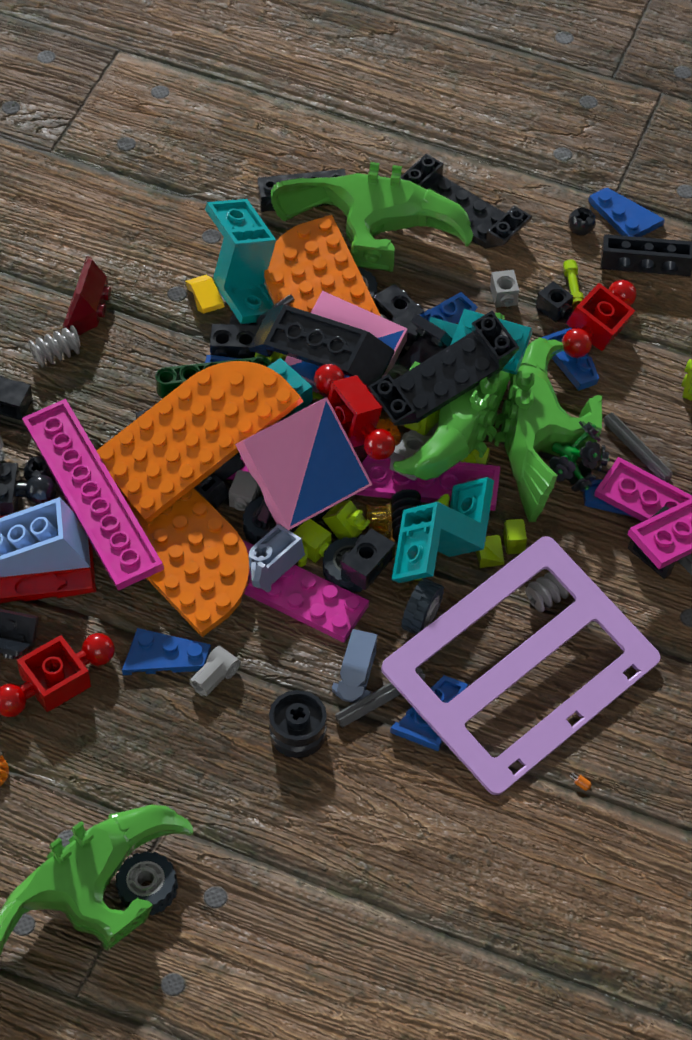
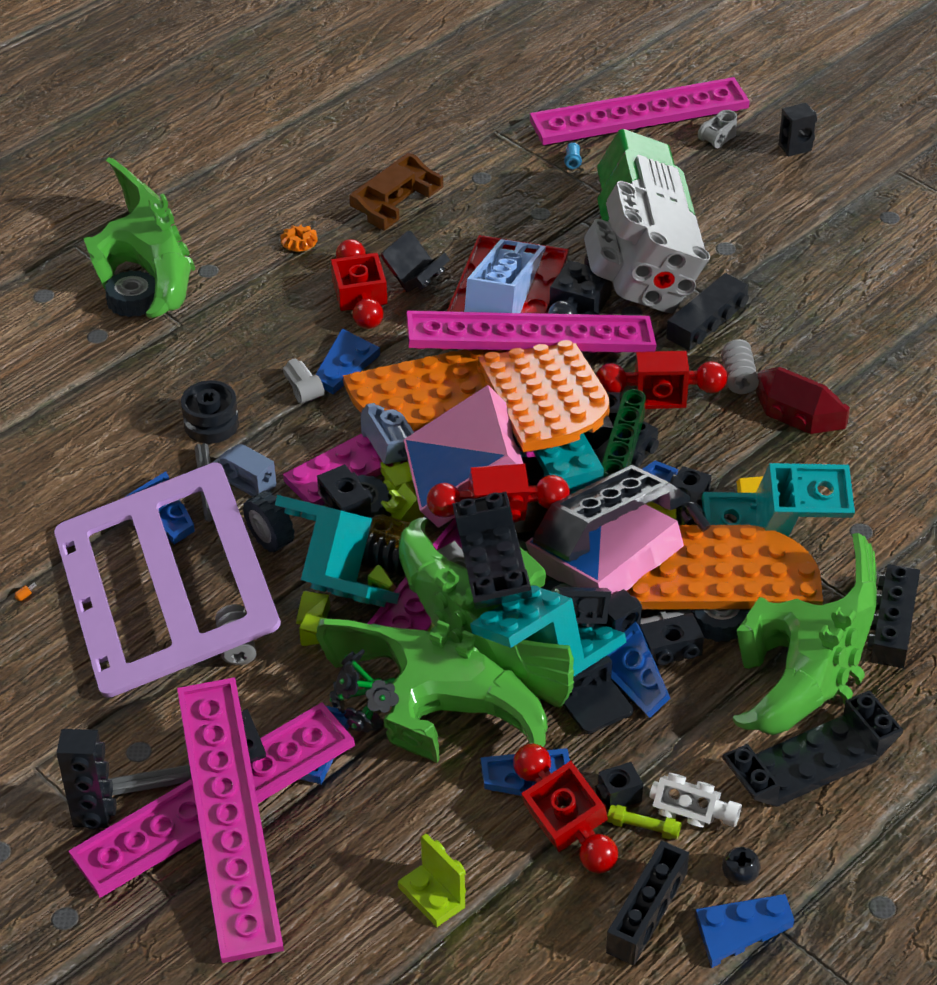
camera: 115 degrees right, 10 degrees down
(103, 386) = (663, 378): none -> red brick
(504, 288) = (661, 746): light grey brick -> none
(546, 256) = (687, 803): none -> white brick
(637, 447) = (374, 788): dark grey axle -> none

